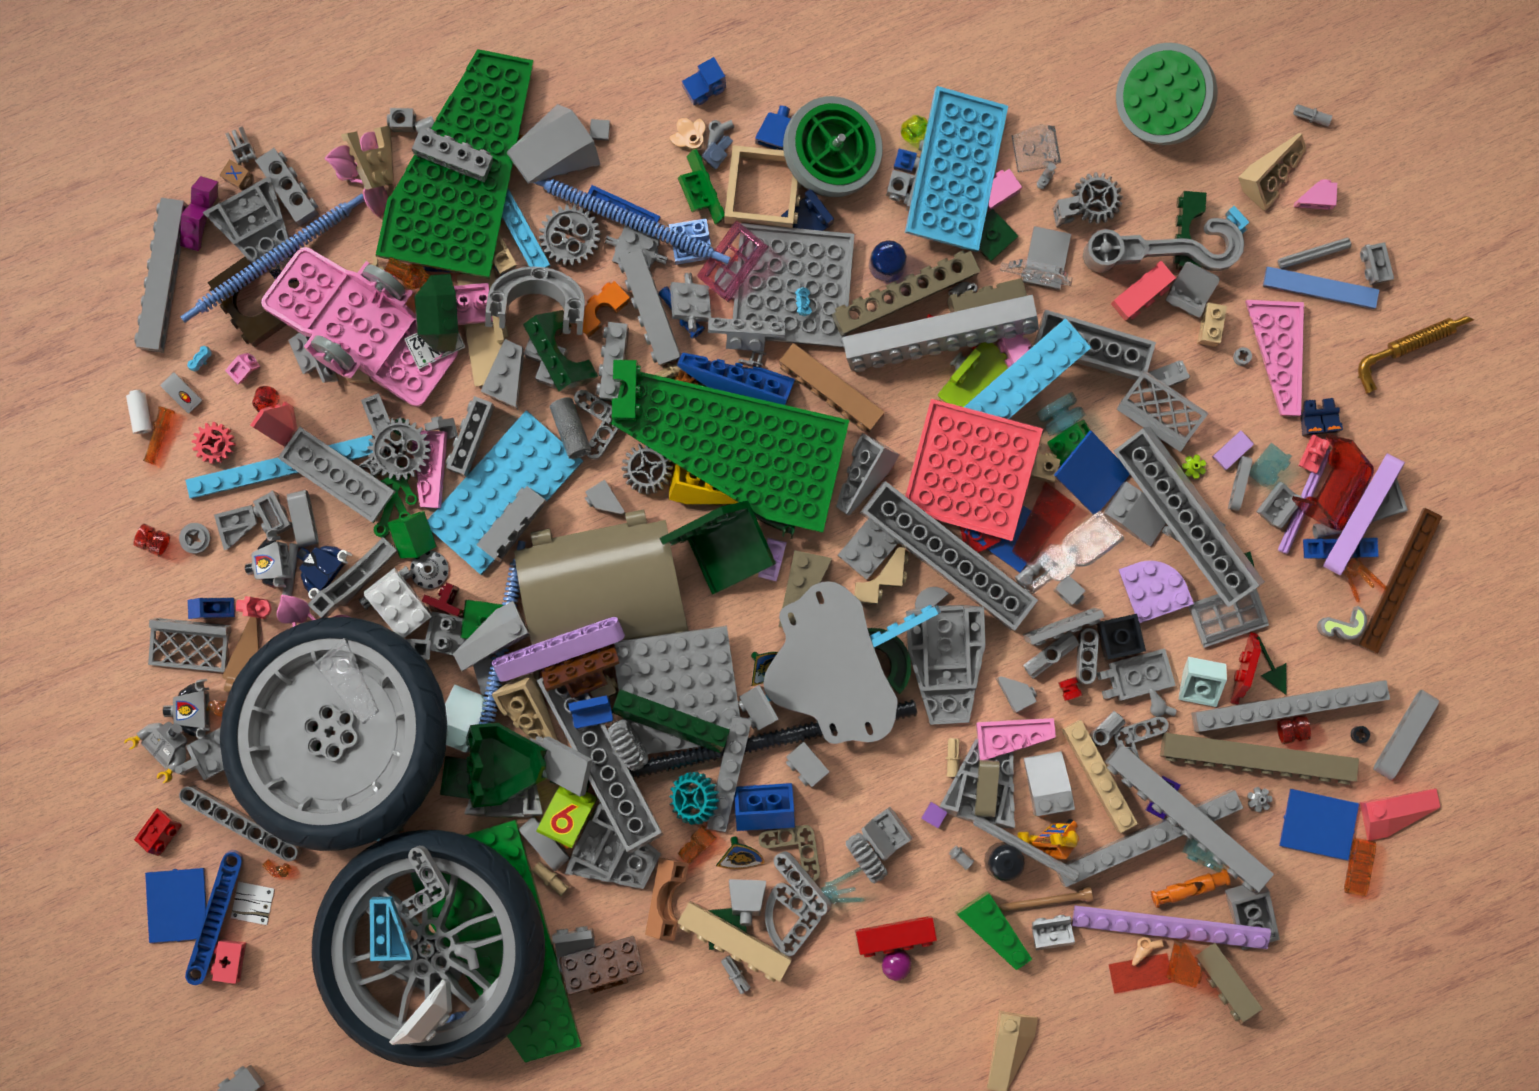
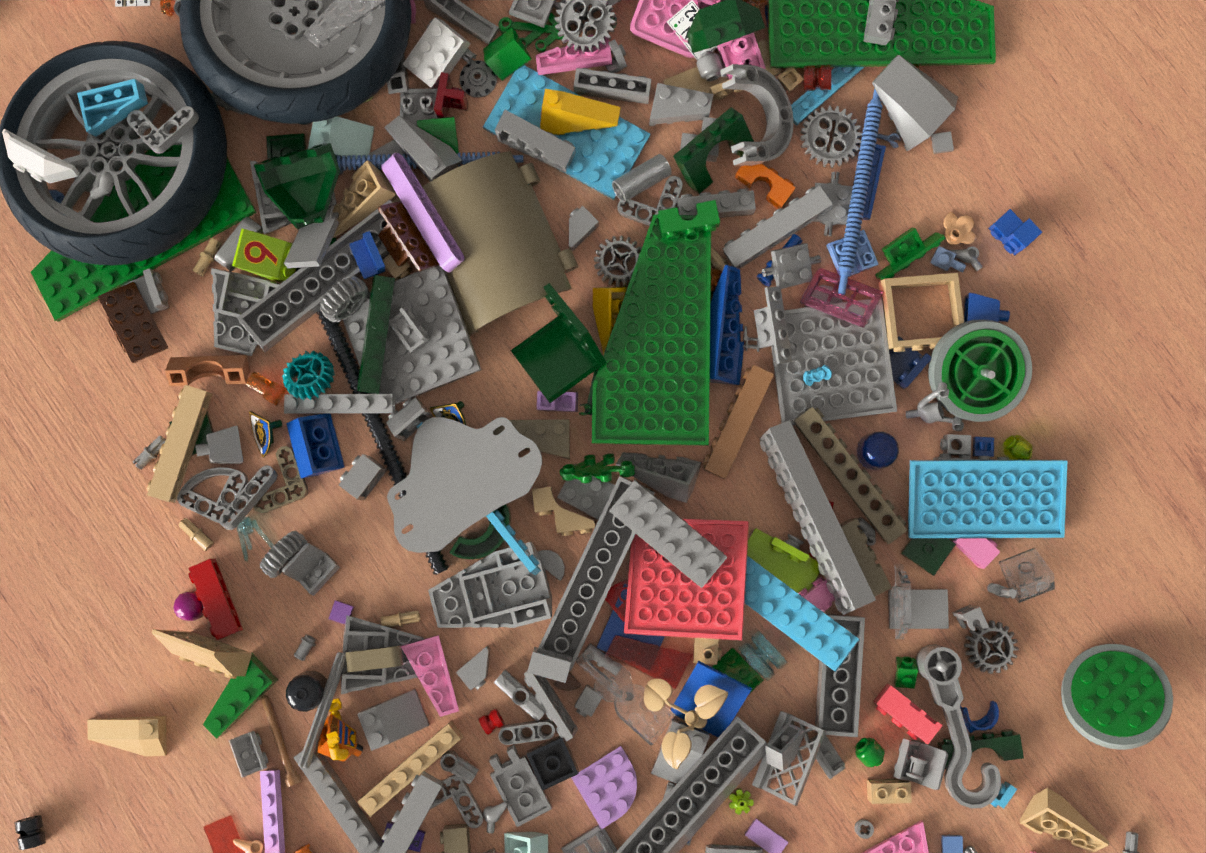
camera: 85 degrees right, 0 degrees up
(473, 336) = (709, 66): none -> light grey head
(490, 481) = (573, 113): none -> yellow wedge
(510, 234) = (817, 77): none -> clear red wheel
(584, 178) = (891, 139): none -> sand blue hand
(673, 687) = (409, 330): none -> light grey bracket
(826, 944) = (195, 534): none -> tan axle
(849, 534) = (597, 470): none -> green plant
(862, 199) = (933, 411): none -> light grey piece
(927, 476) = (668, 533): none -> light grey brick
(947, 952) = (205, 652): none -> tan slope
(1028, 617) = (549, 664): none -> light grey hinge
(1047, 607) = (571, 683): none -> reddish brown tile
(1104, 283) = (906, 672): none -> green bracket
(1130, 511) = (708, 701): none -> tan plant
(1151, 412) = (784, 746): none -> light grey slope
(1167, 222) = (985, 723): none -> blue helmet
(1172, 334) = (870, 752): none -> green head
(1195, 293) = (916, 767): none -> light grey bush

